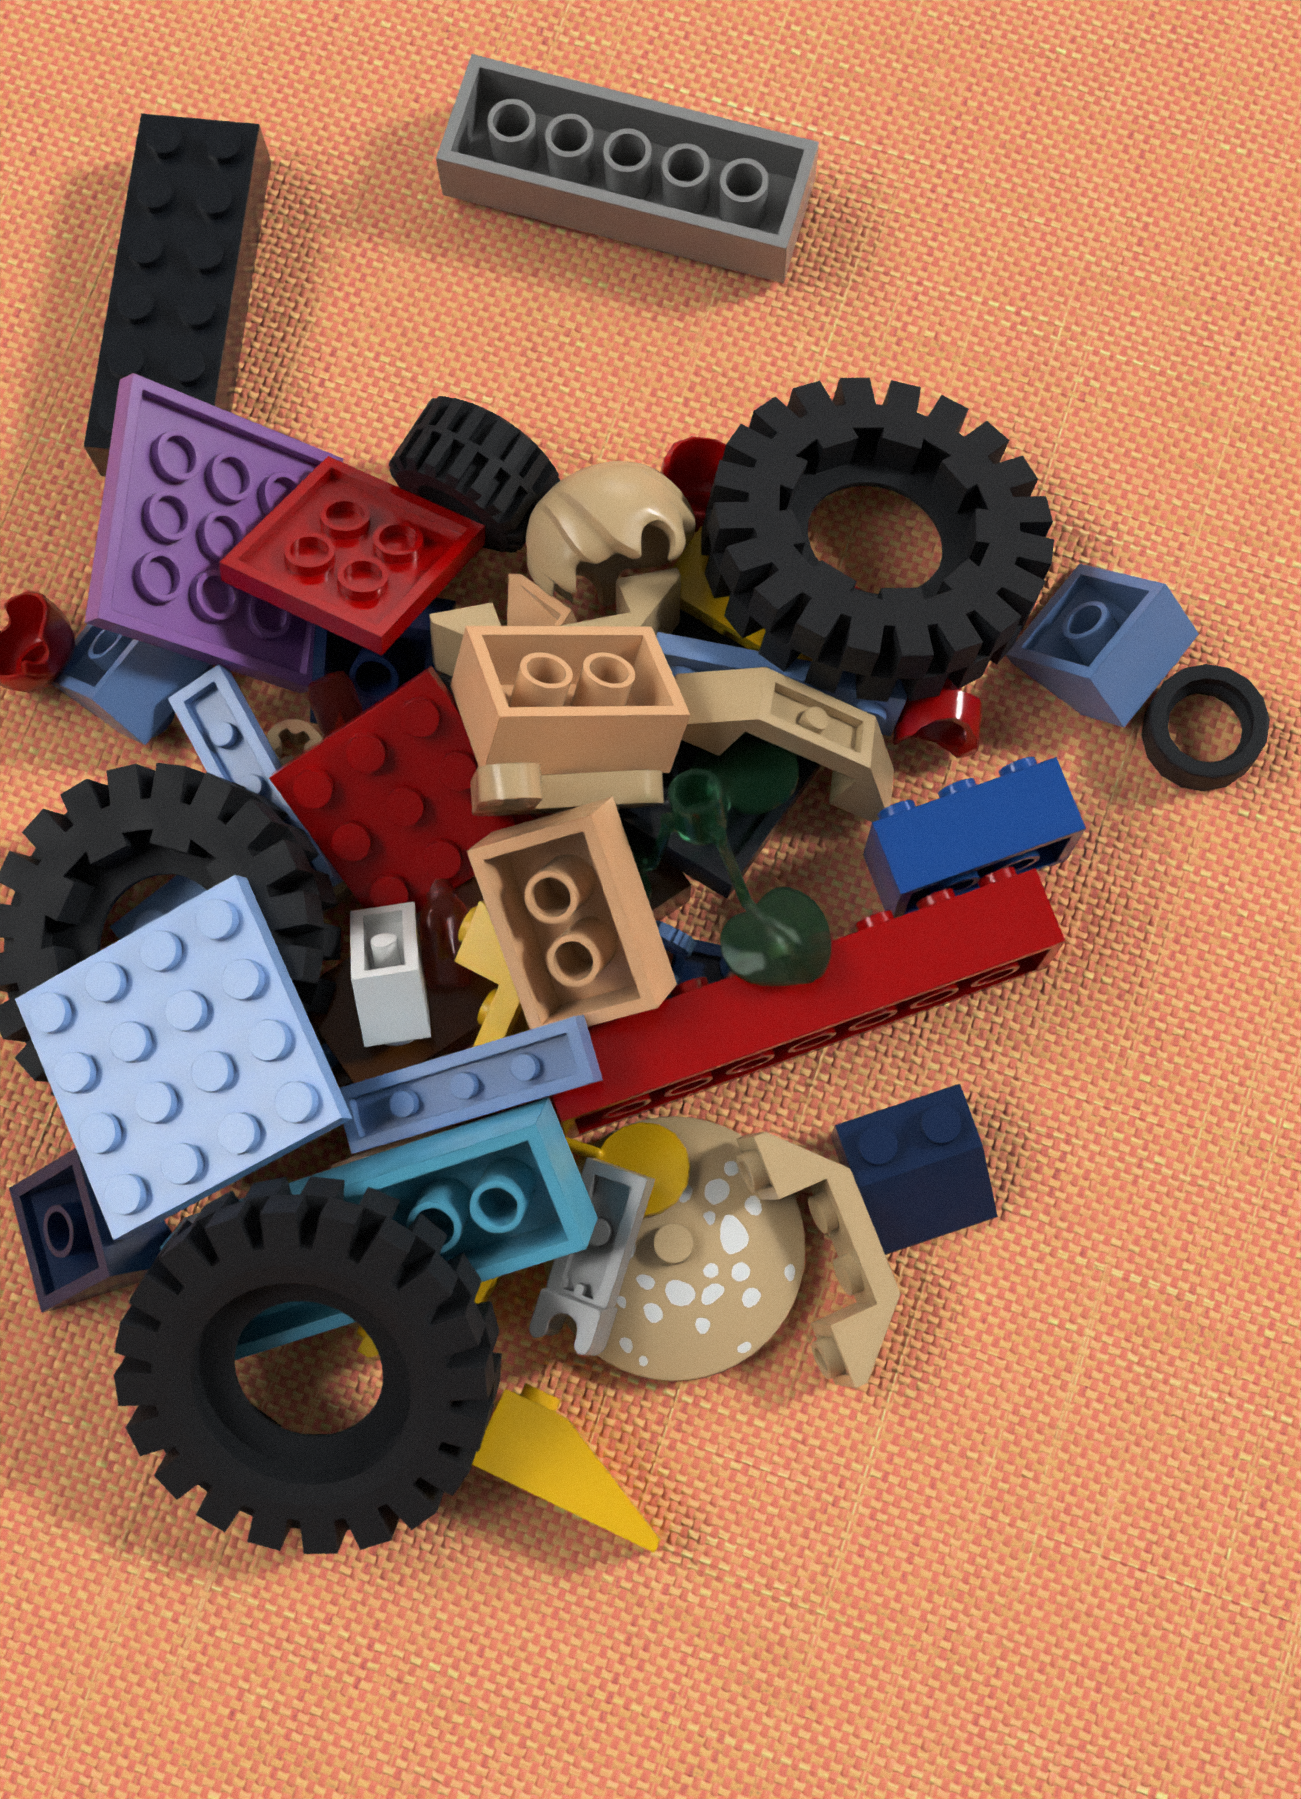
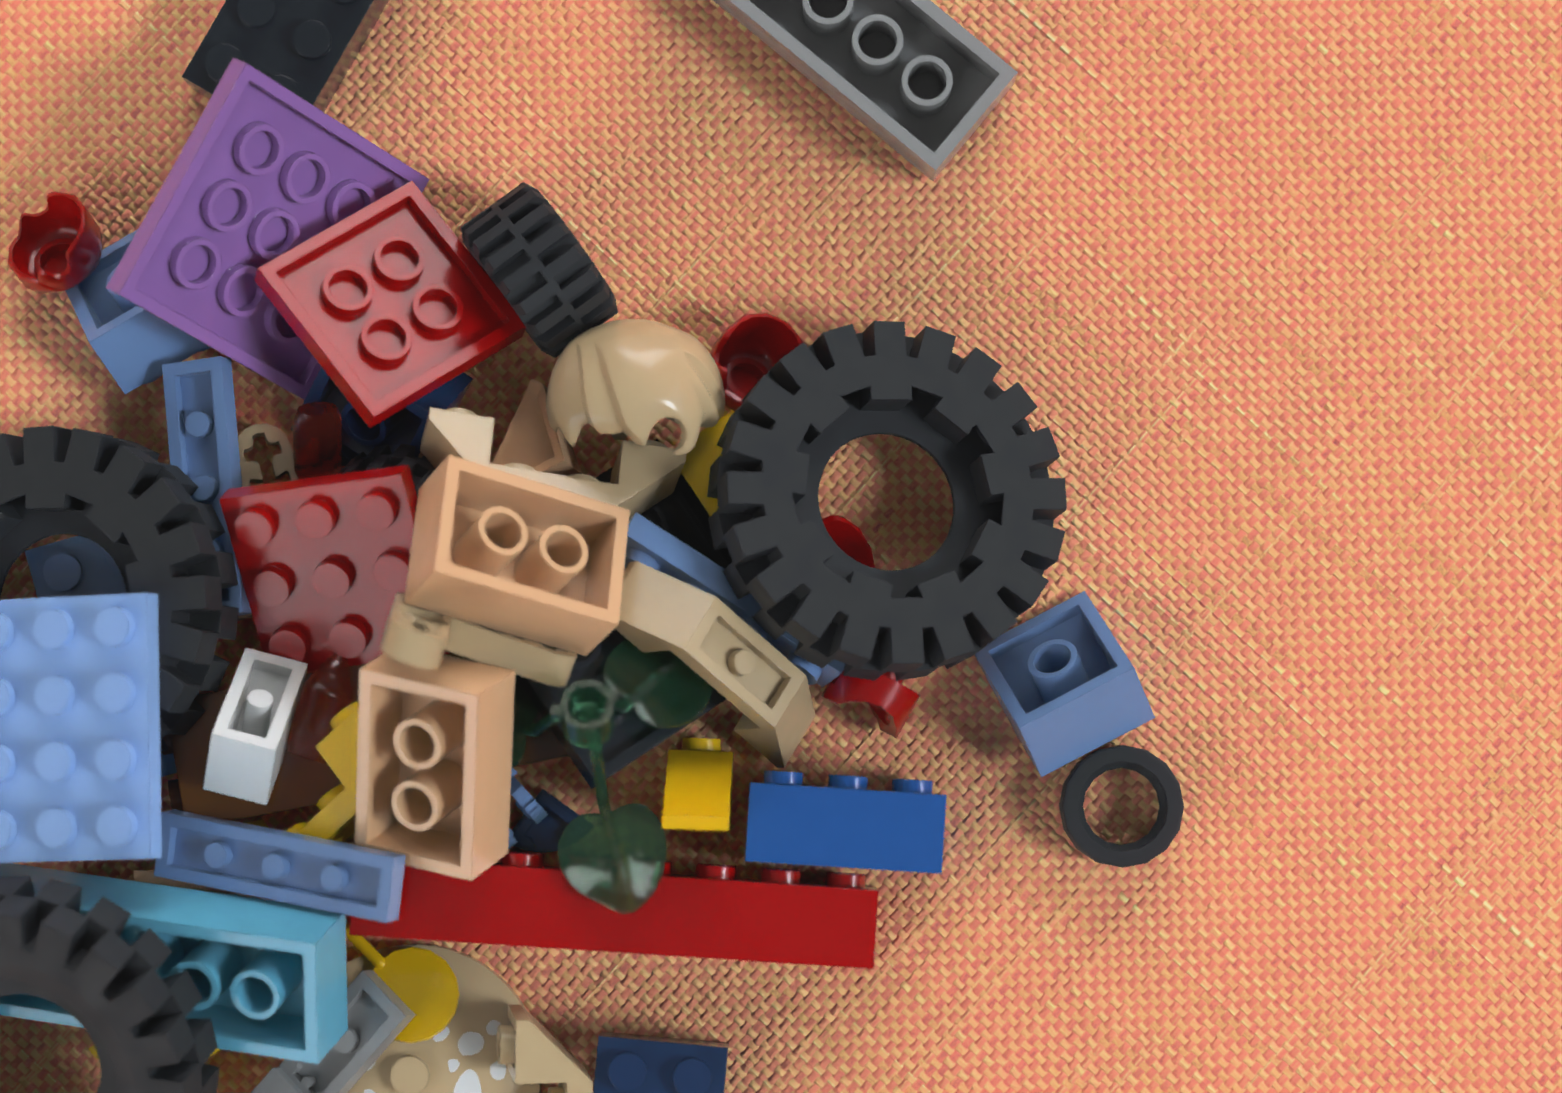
camera: 20 degrees right, 10 degrees up
(828, 864) = (698, 786): none -> yellow slope

